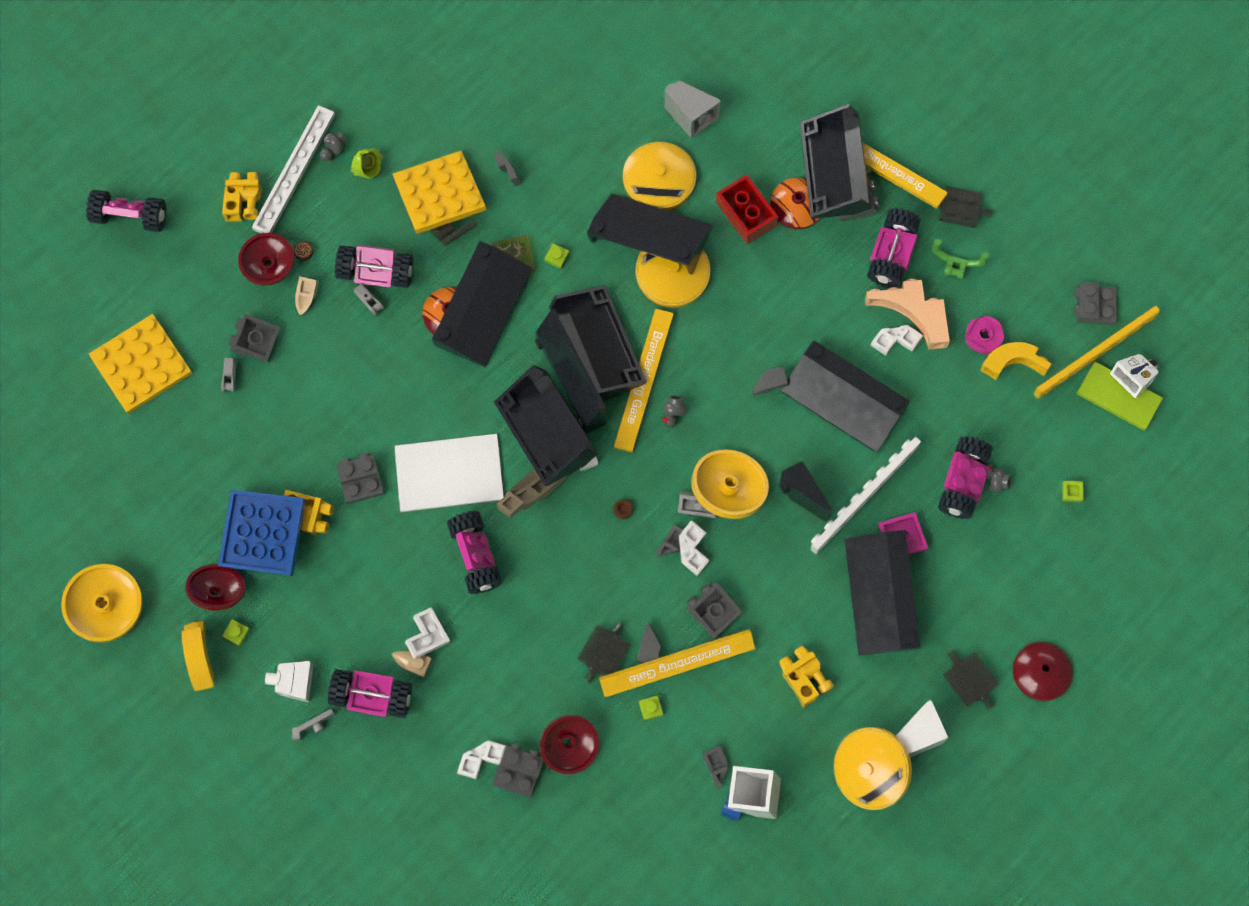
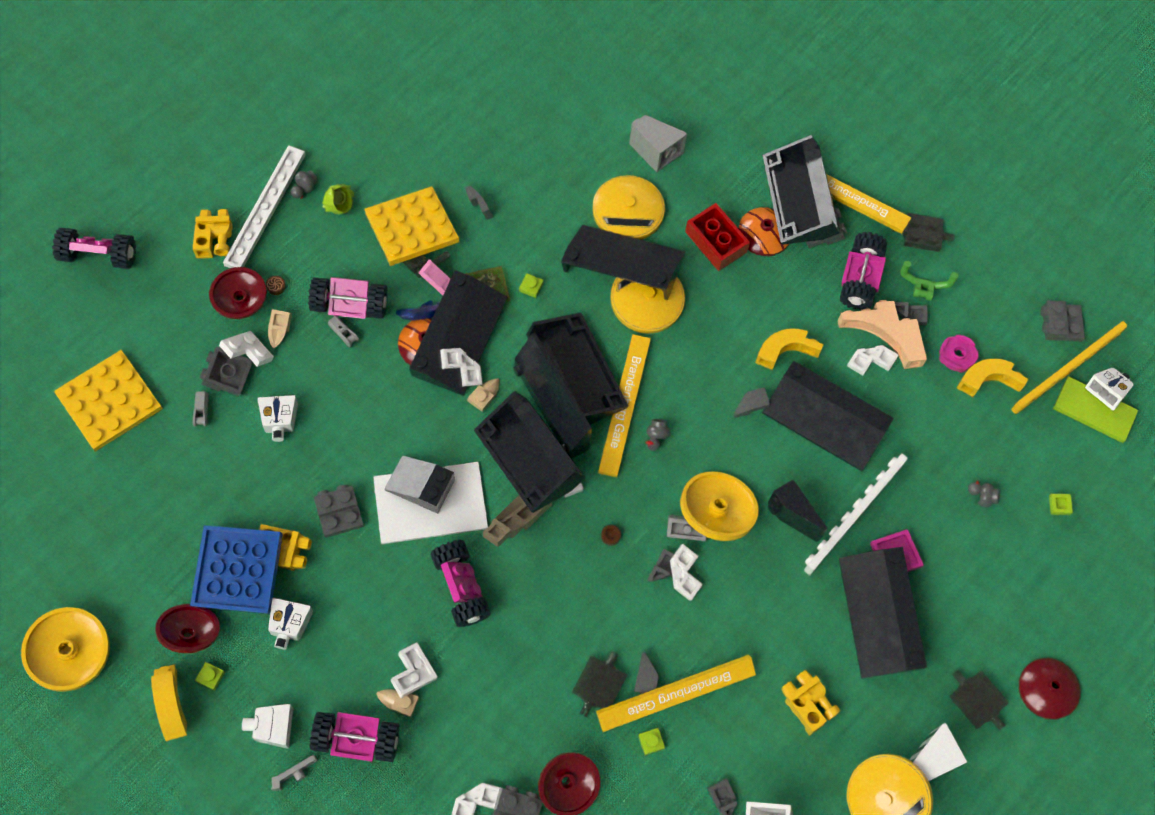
camera: 10 degrees left, 5 degrees down
(274, 311) = (247, 344): none -> white plate
(303, 383) = (278, 415): none -> white torso
(310, 583) = (288, 621): none -> white torso
(440, 453) = (421, 483): none -> slope
(447, 282) = (426, 311): none -> clear blue piece
(460, 245) = (435, 276): none -> bright pink tile
(481, 331) = (469, 369): none -> white tile
(505, 366) = (484, 394): none -> tan plate
(713, 609) = (710, 634): dark grey plate -> none
(807, 319) = (785, 341): none -> yellow arch
(941, 291) = (912, 312): none -> dark grey slope
(965, 477) = (955, 493): plate -> none

